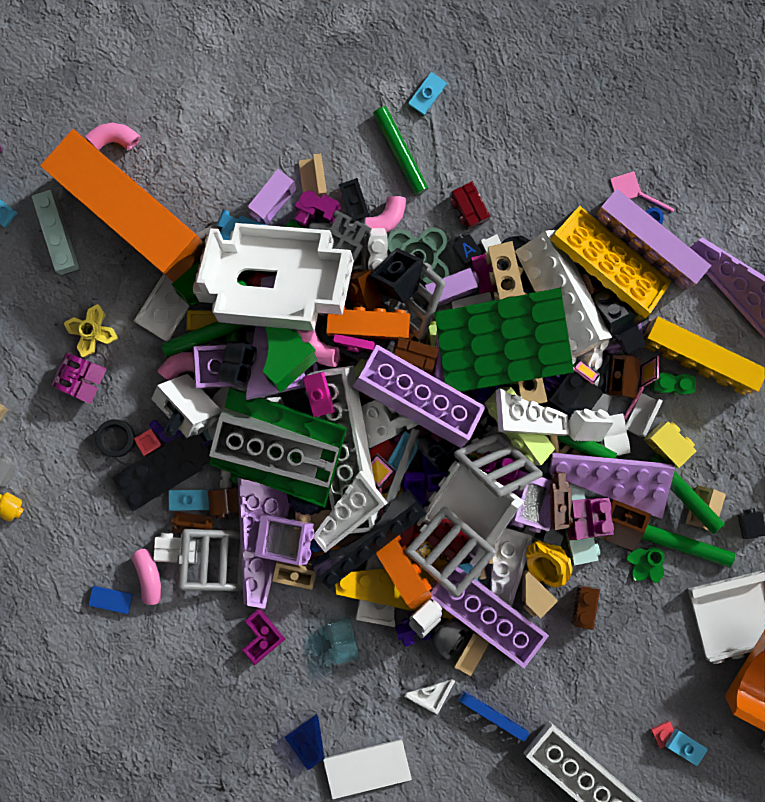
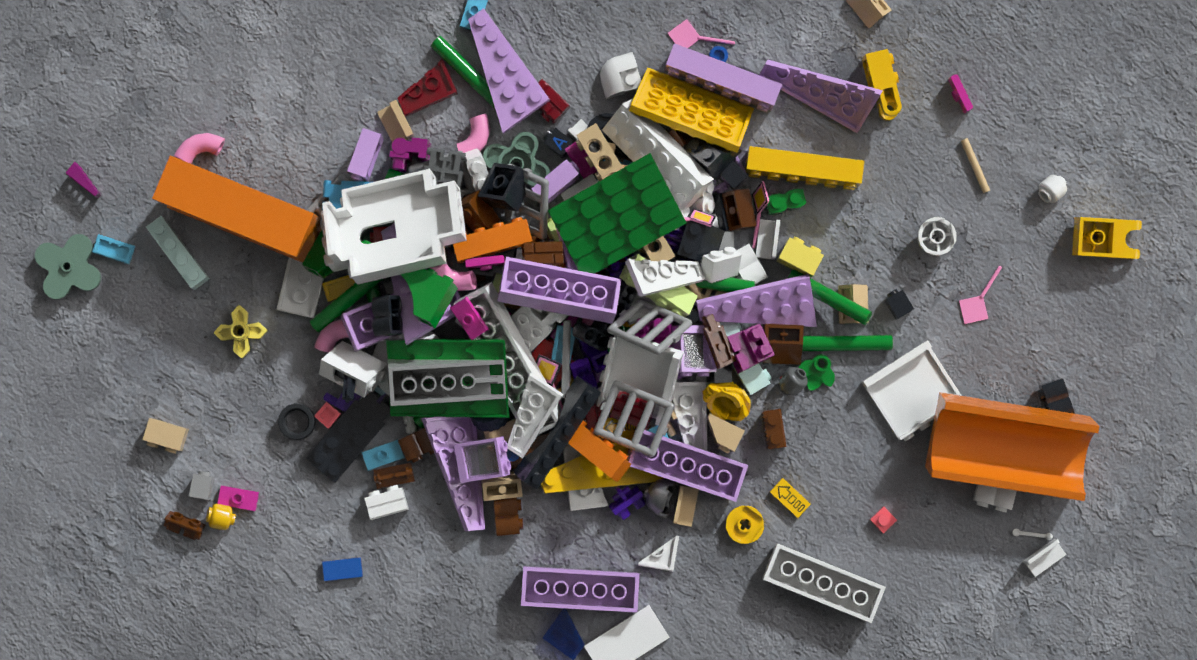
camera: 25 degrees left, 0 degrees up
(32, 494) = (238, 498): none -> dark pink plate
(76, 377) = (242, 377): magenta hips -> none
(148, 576) = (370, 535): bright pink cylinder -> none
(202, 585) = (421, 525): light grey bar -> none
(267, 637) = (496, 553): magenta brick -> none
(290, 604) = (507, 516): none -> reddish brown brick
(339, 702) = (580, 589): none -> lavender brick
(342, 641) = (565, 534): clear light blue brick -> none
(354, 200) = (440, 131): black plate -> none
(357, 156) = (430, 89): none -> dark red wing
(426, 618) = (632, 486): white brick -> none
(440, 176) = (510, 82): none -> lavender wing
(493, 715) = (724, 555): blue beam -> none
(522, 703) = (755, 522): none -> yellow plate
(549, 204) = (620, 75): none -> white brick
(578, 680) = (790, 498): none -> yellow tile
(621, 565) = (793, 381): none -> dark grey head
(686, 747) = (905, 524): medium azure plate -> none

